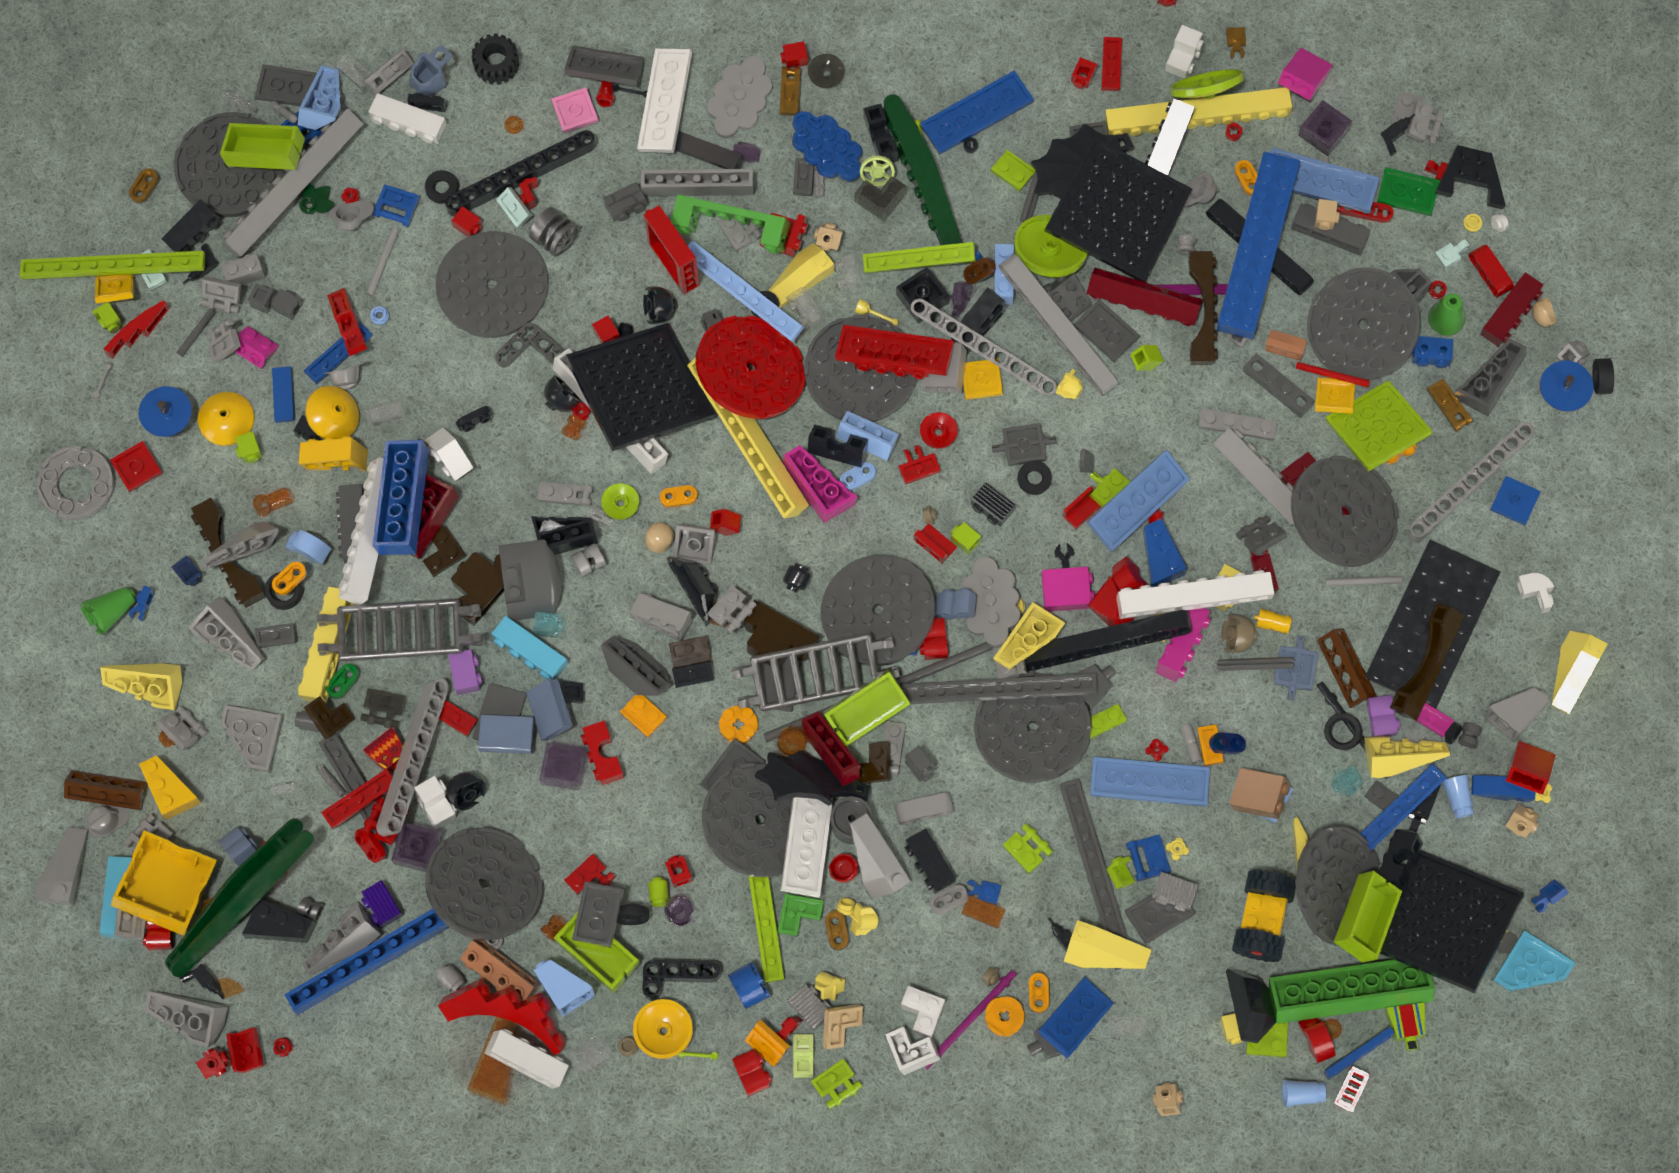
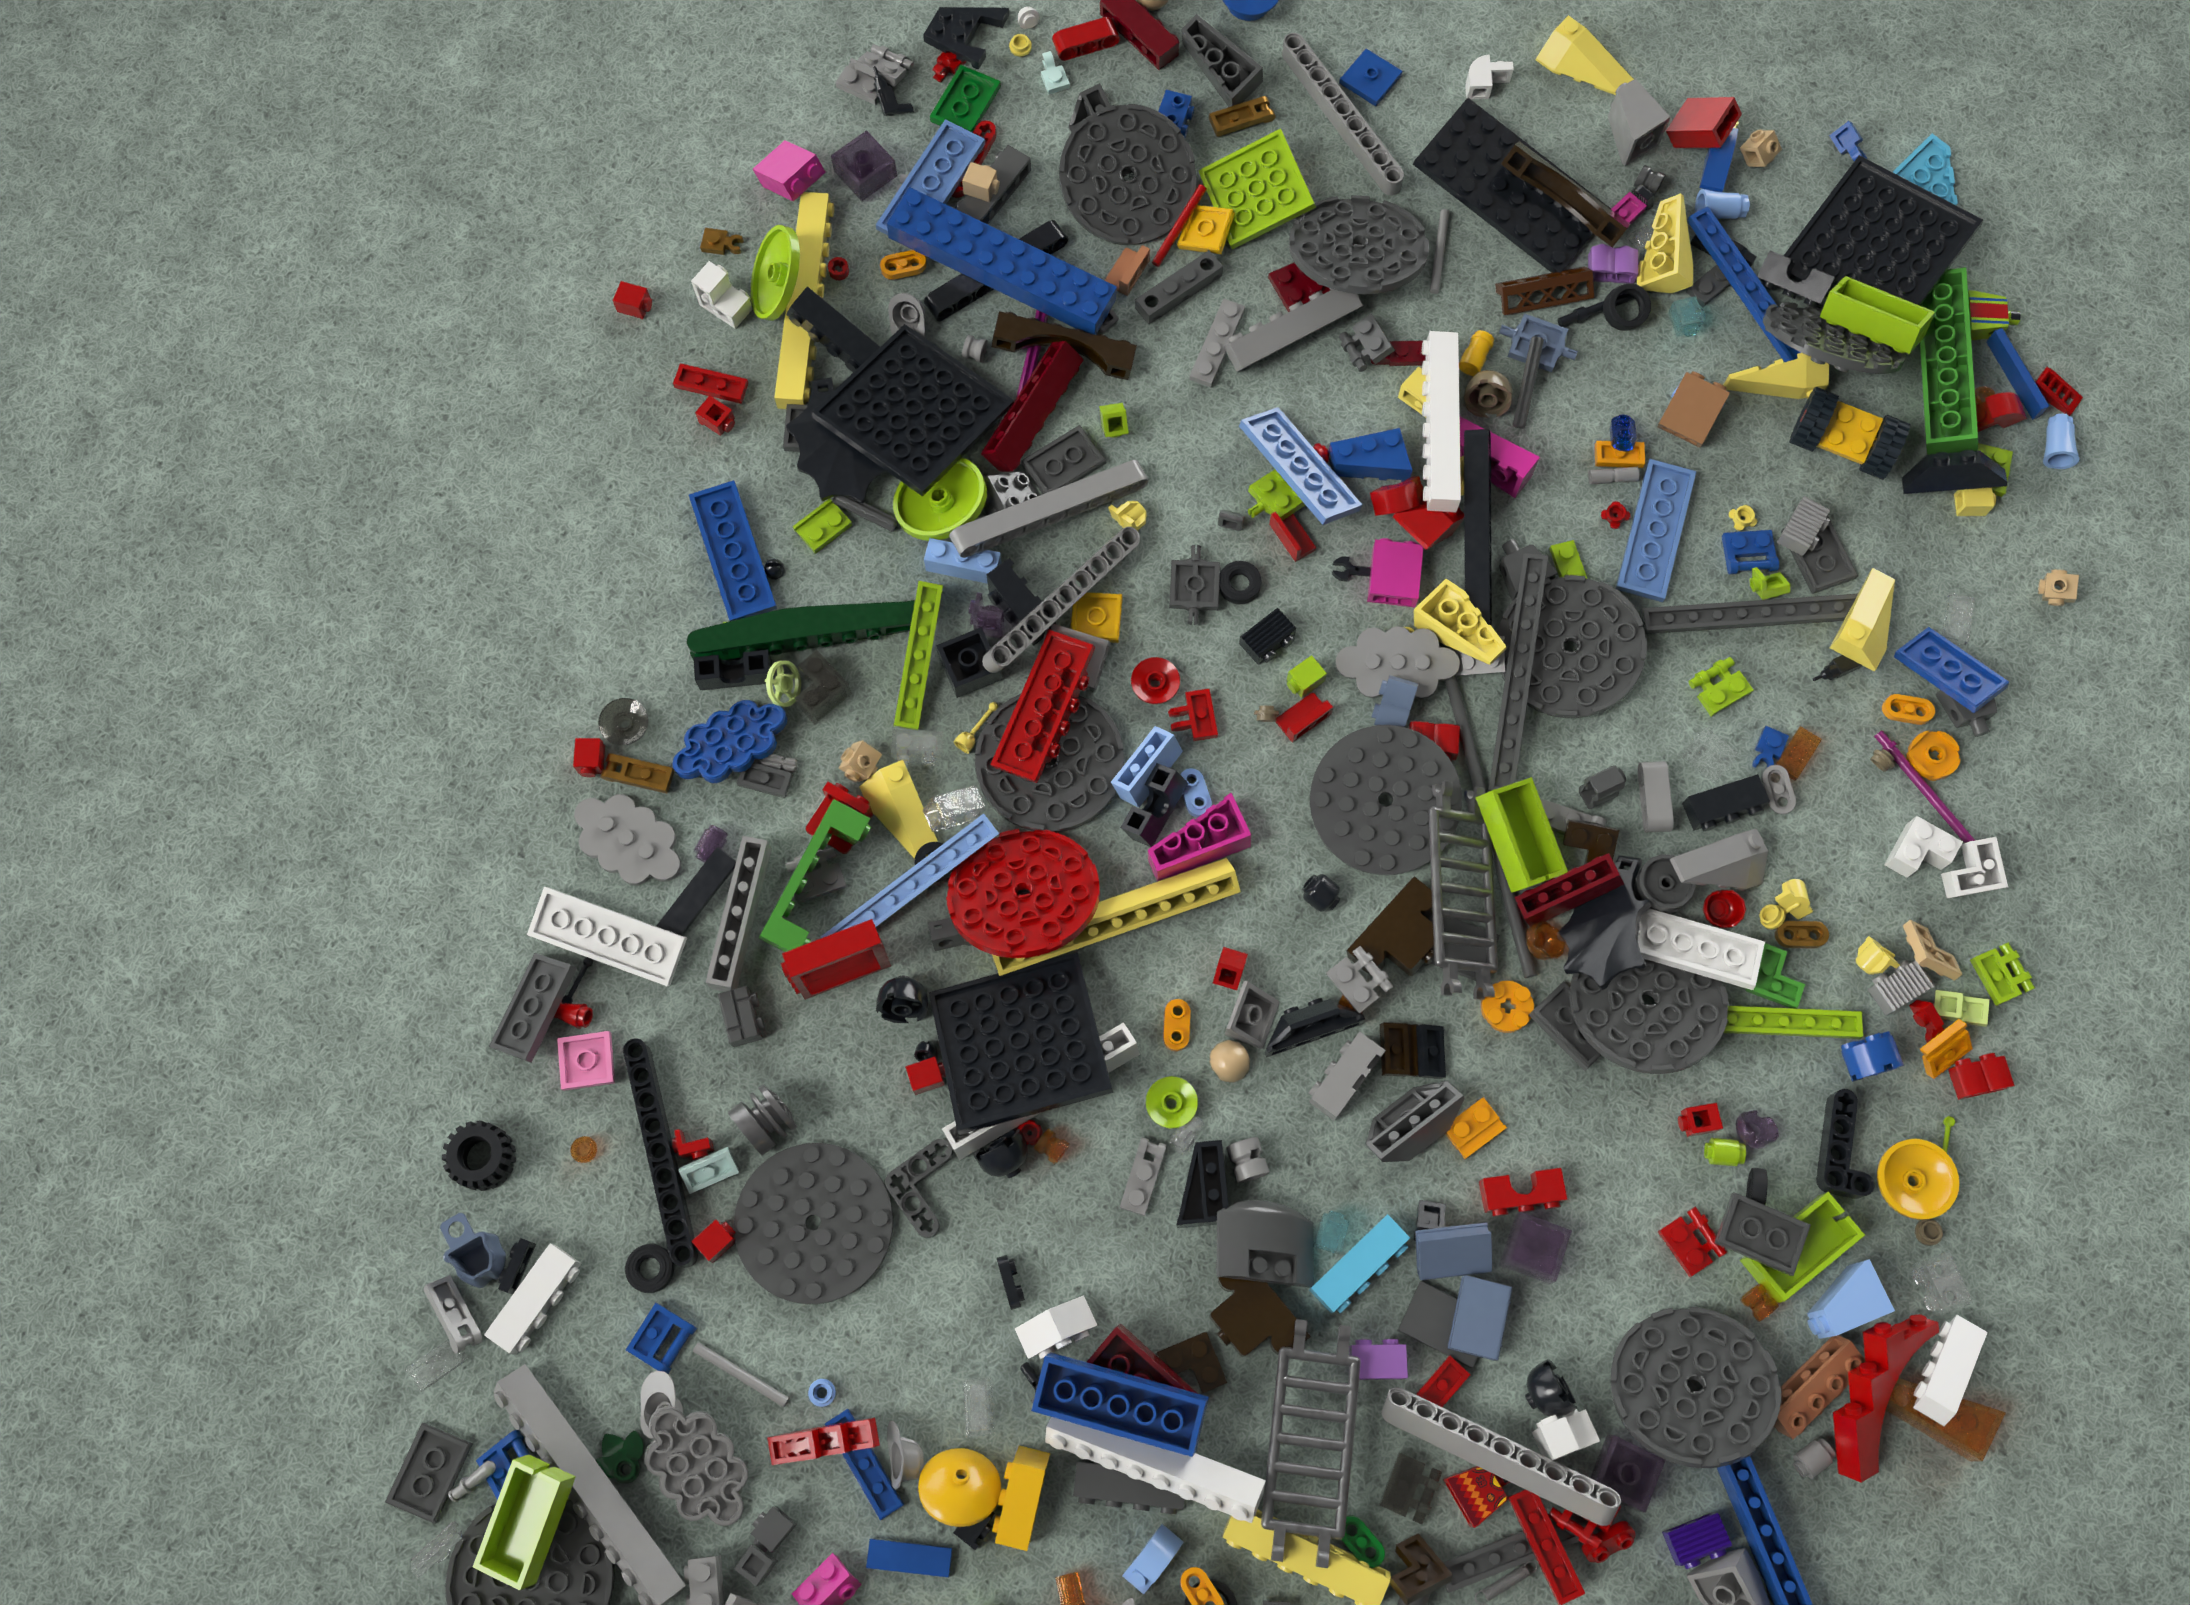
camera: 80 degrees left, 0 degrees up
(316, 245) = (696, 1465): none -> light grey plate
(322, 100) = (473, 1418): light blue wedge -> none
(345, 196) = (635, 1407): red plate -> none
(982, 268) = (953, 585): reddish brown plate -> none
(1447, 315) = (1131, 85): bright green cone -> none

